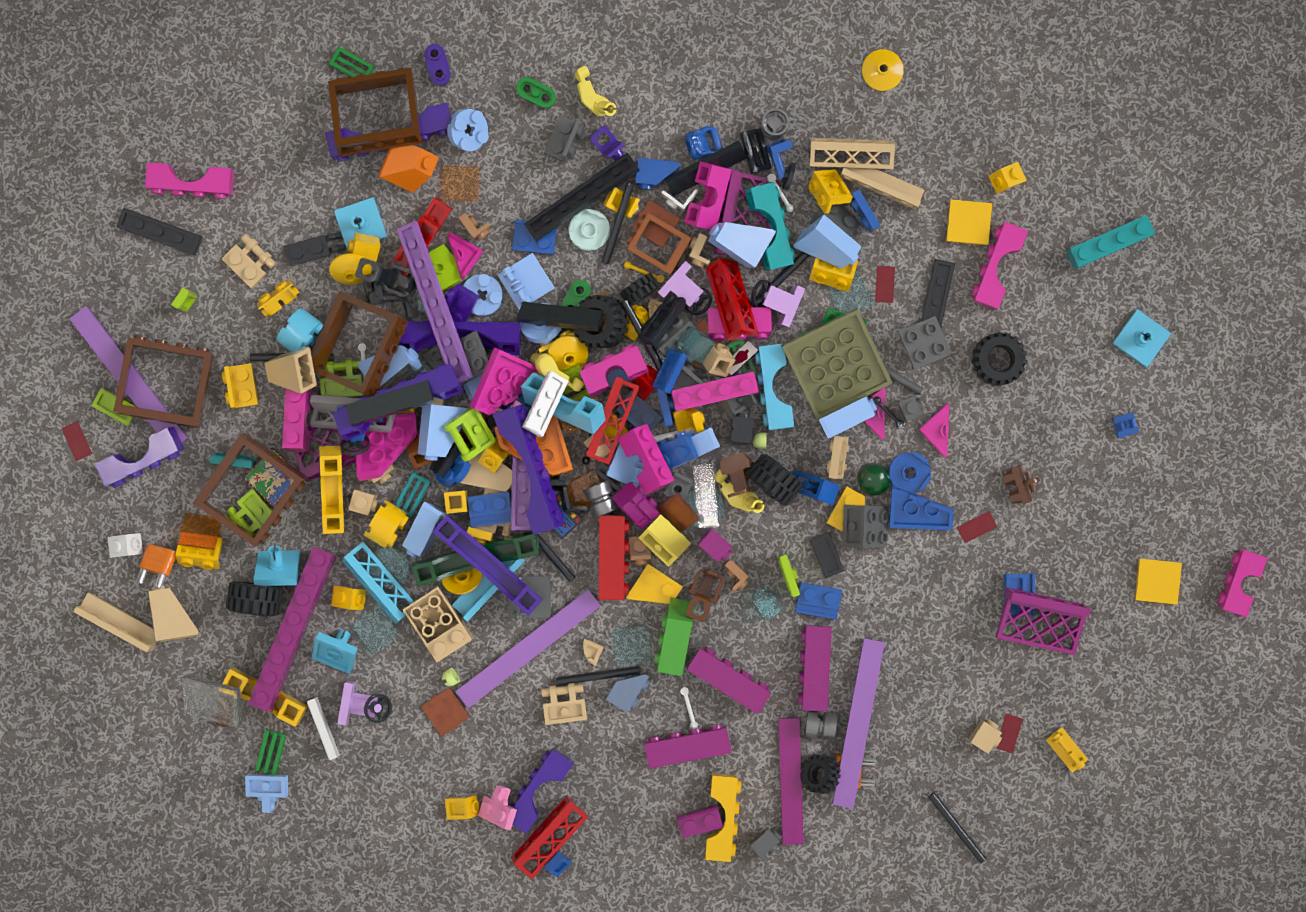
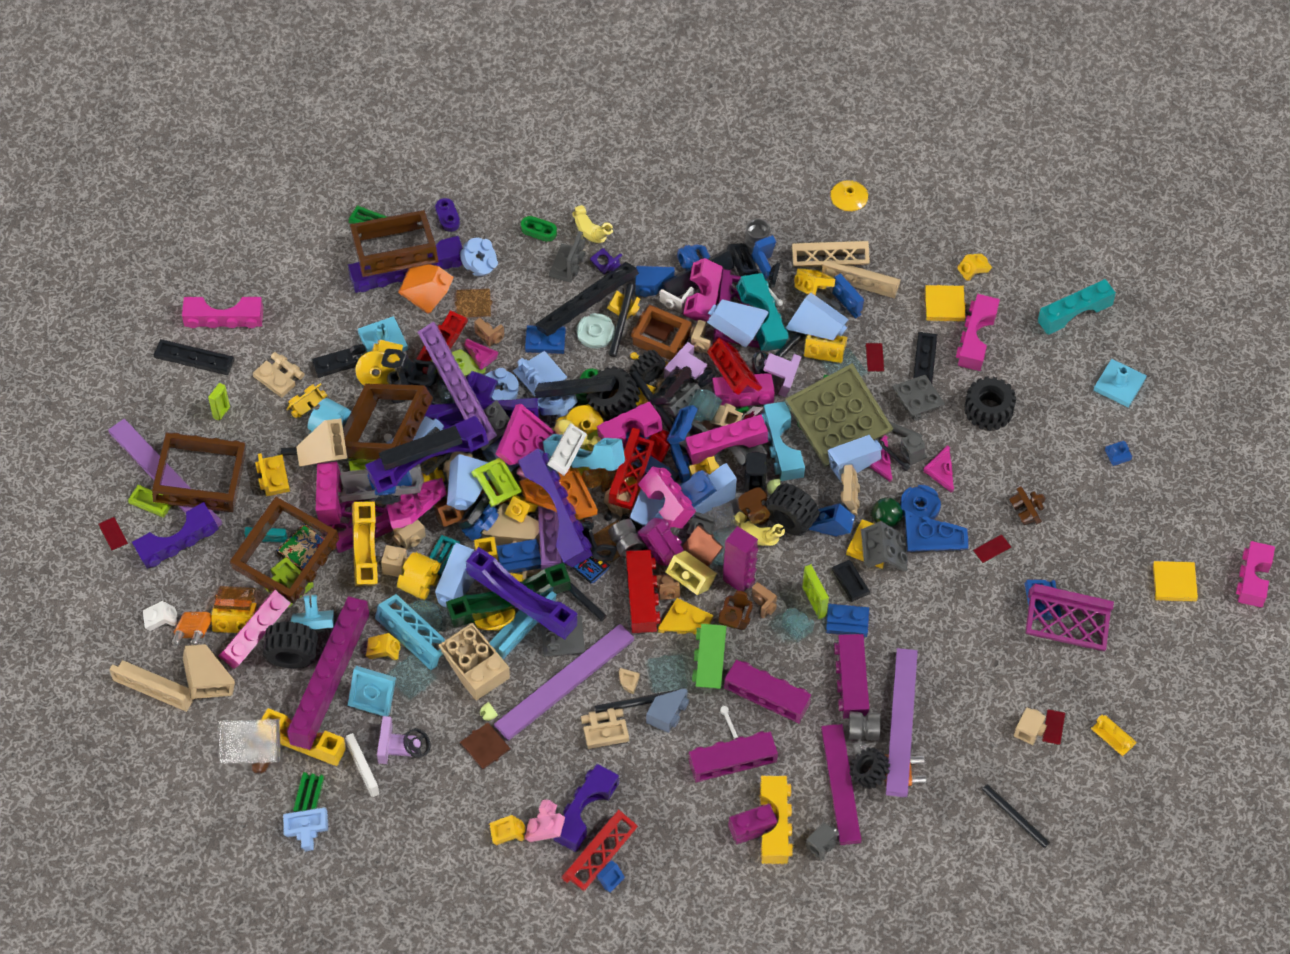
camera: 10 degrees left, 30 degrees down
(208, 588) = (254, 629): none -> arch

